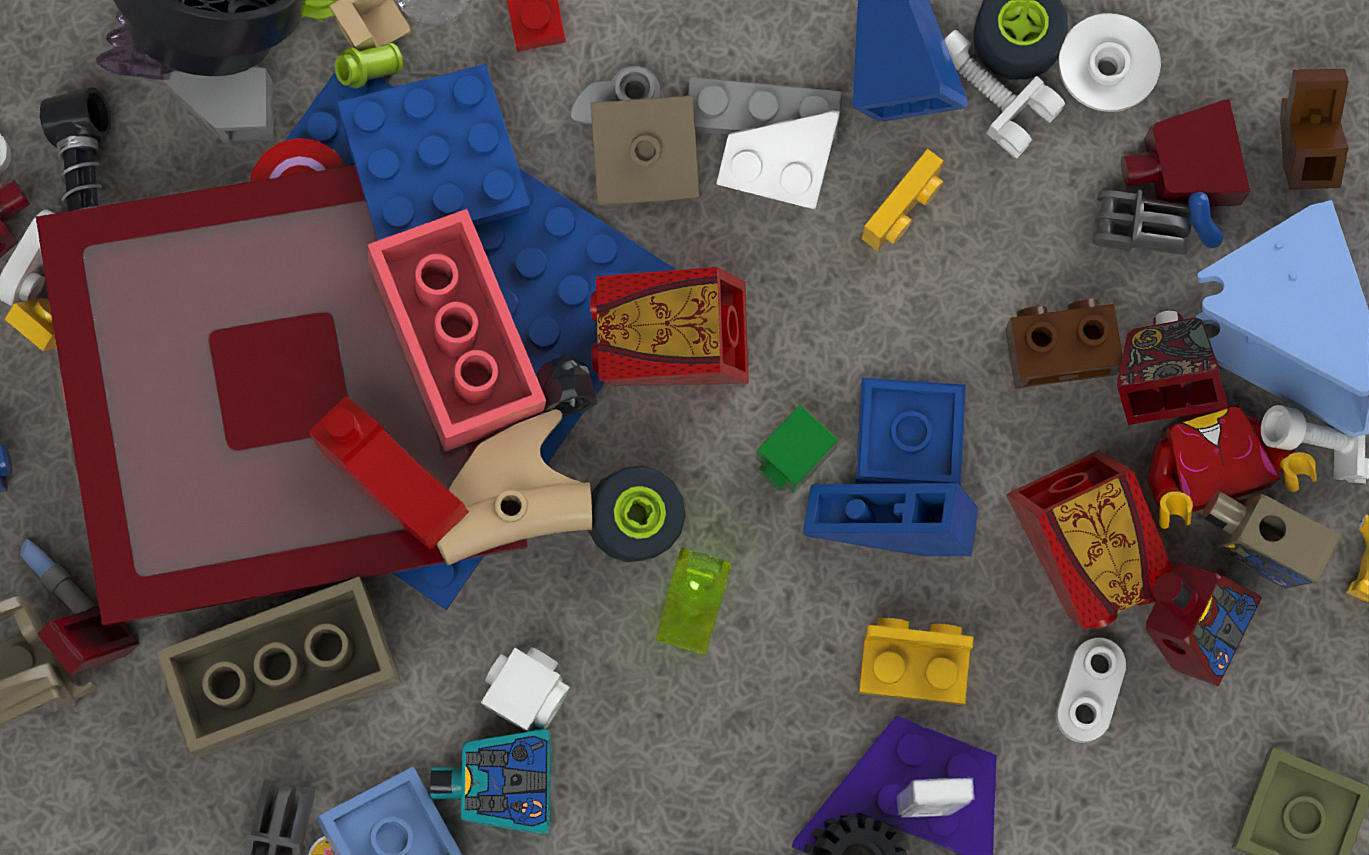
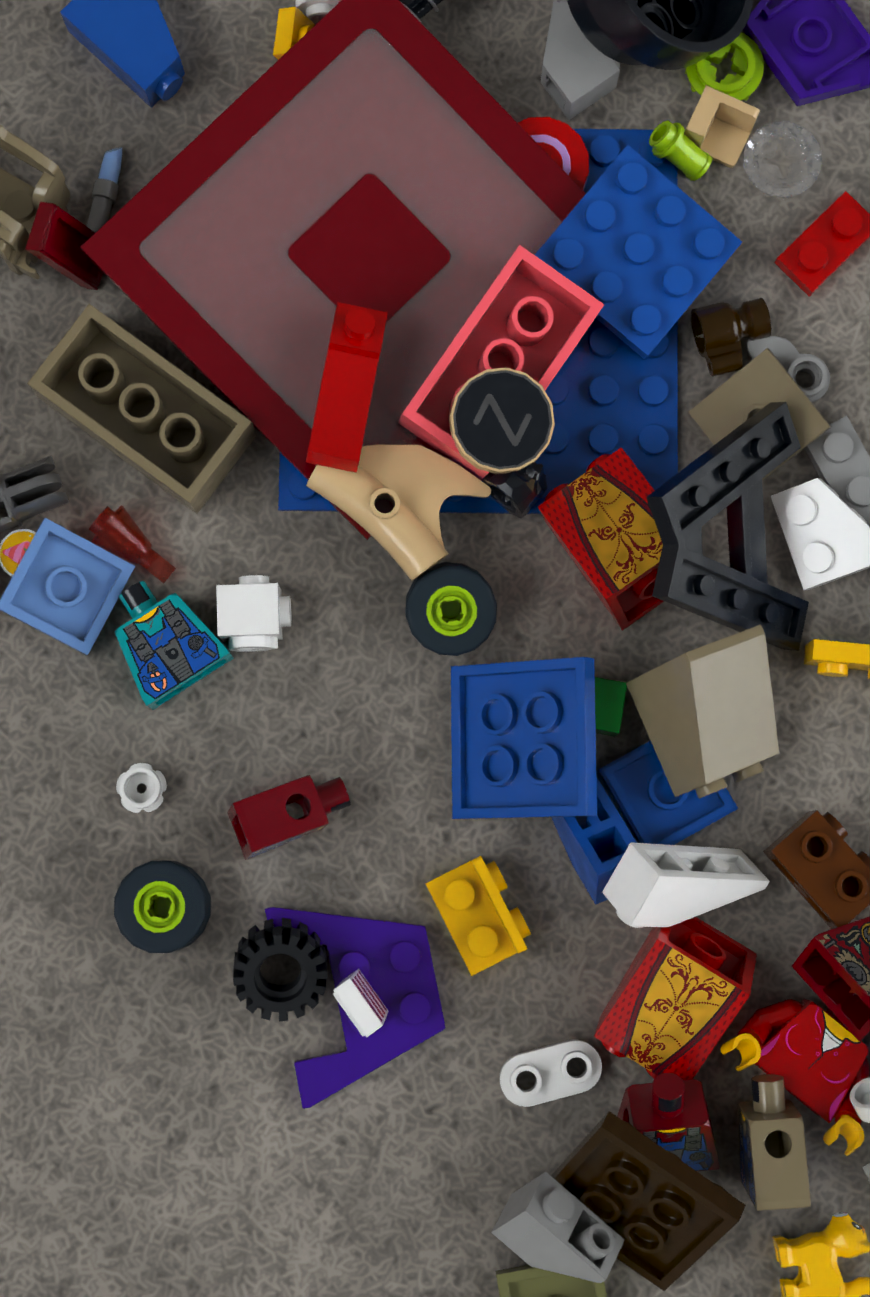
camera: 55 degrees right, 5 degrees up
(379, 761) = (122, 537): none -> clear red cone
(509, 358) = (501, 420): none -> black tile
(549, 130) = (724, 329): none -> dark brown piece
(682, 217) = (719, 479): none -> black plate
(693, 601) = (410, 702): clear neon green slope -> none
(718, 788) = (263, 820): none -> dark red torso
(792, 523) = (524, 739): none -> blue plate
(872, 352) = (710, 712): none -> dark tan slope
(999, 471) = (677, 882): none -> white slope
(1230, 768) = (557, 1231): none -> light grey slope
(1248, 680) = (649, 1199): none -> dark brown plate

